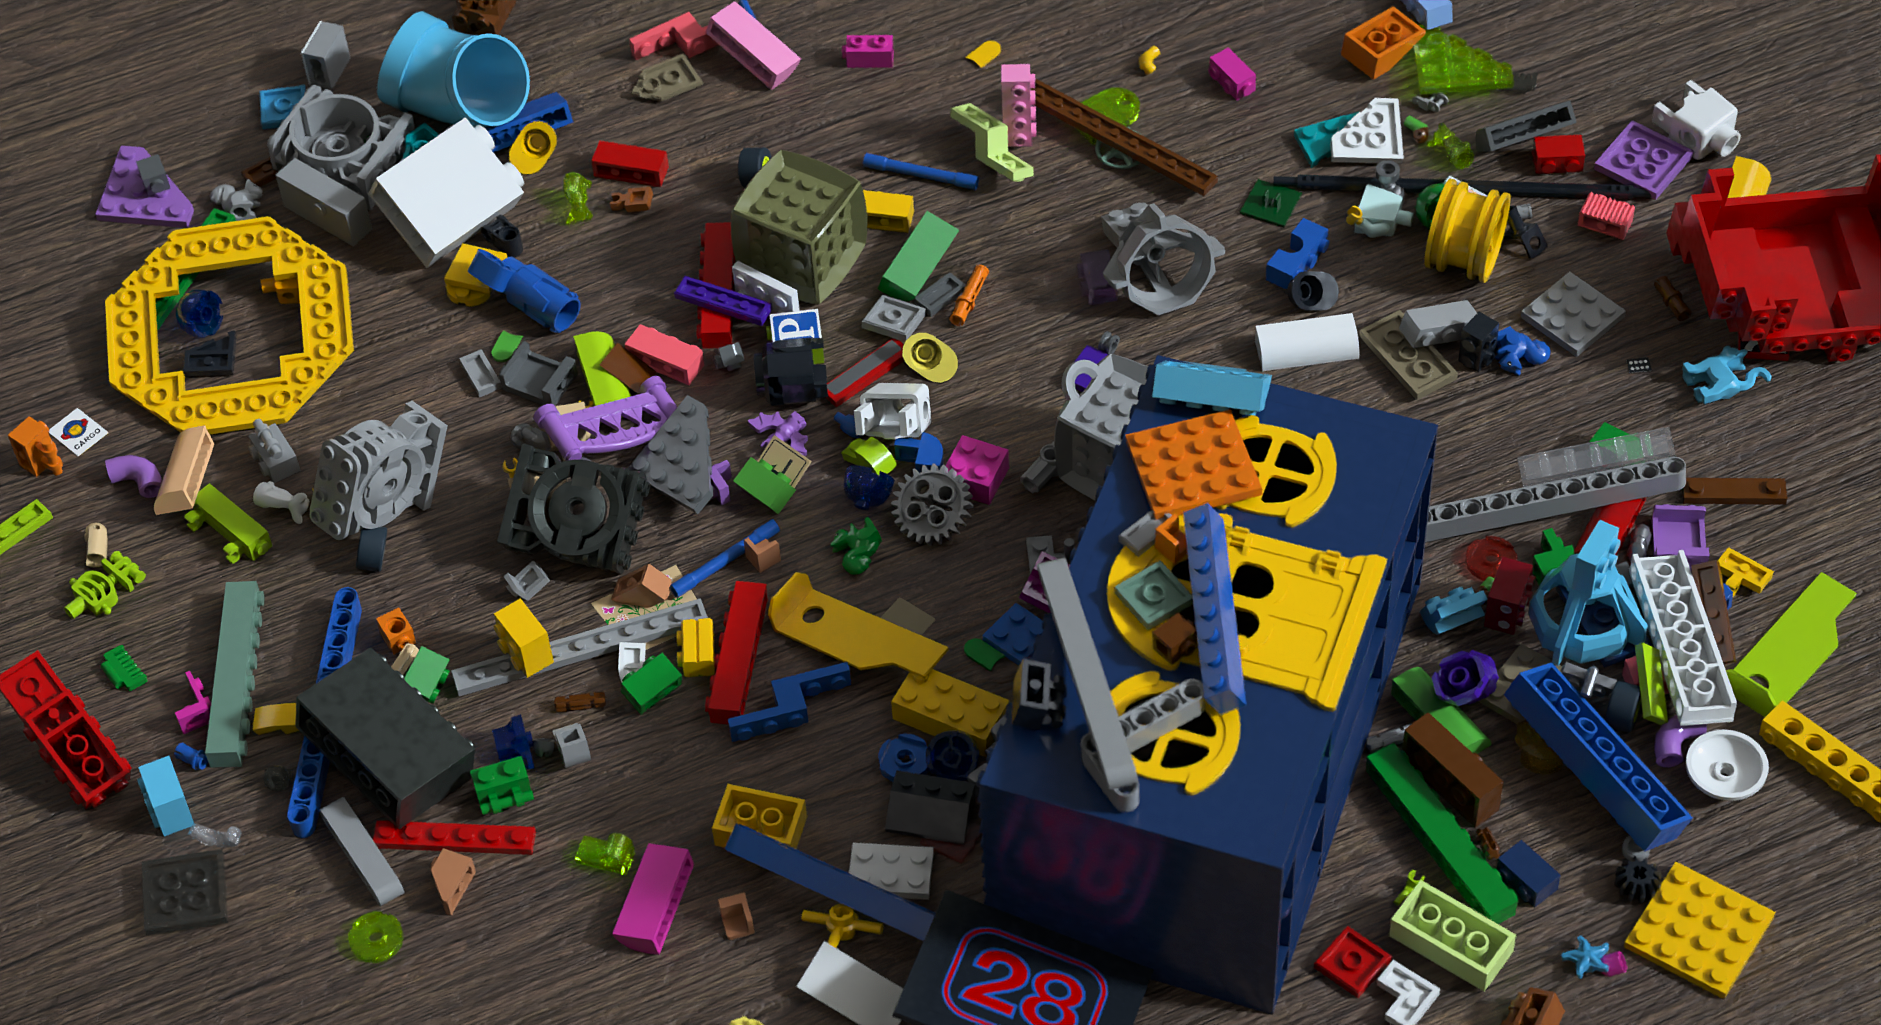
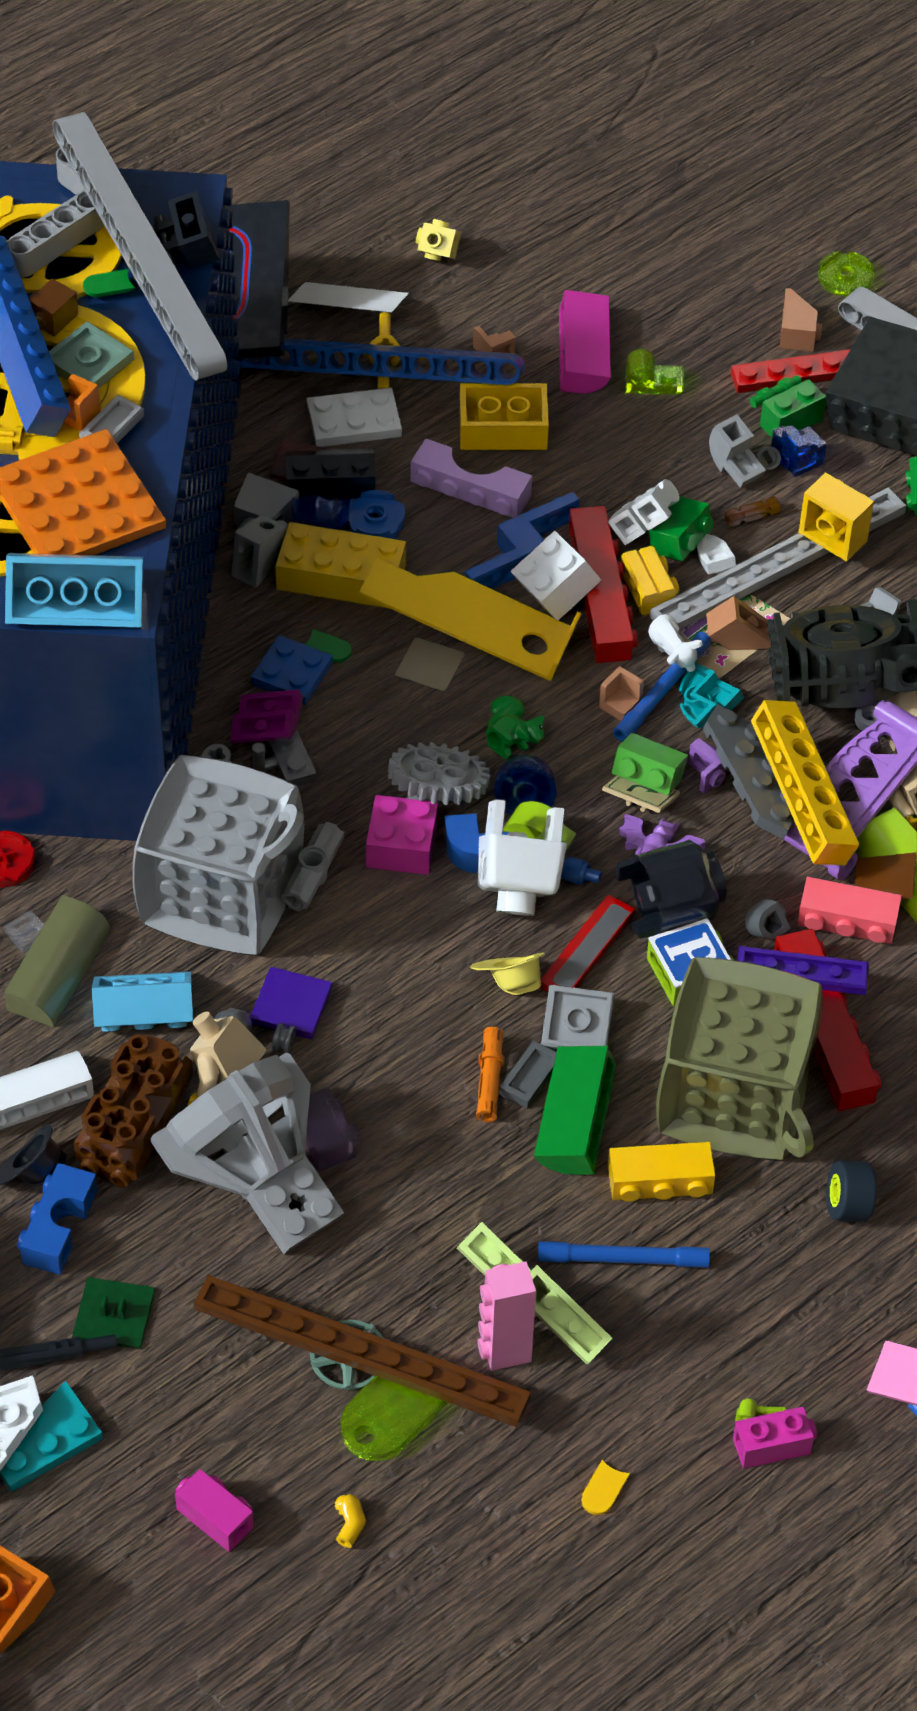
camera: 160 degrees right, 0 degrees up
(659, 419) = (805, 783): none -> yellow brick
(671, 680) = (644, 512): none -> white legs
(694, 543) = (703, 692): none -> teal brick
(702, 579) = (665, 634): none -> white animal
(776, 644) = (556, 575): none -> white brick
(786, 756) = (500, 491): none -> lavender arch
(877, 73) = (749, 1408): none -> lime hand
(1121, 672) = (107, 283): none -> green piece
(1152, 322) = (223, 1047): none -> tan torso
(1230, 299) = (131, 1108): none -> reddish brown brick

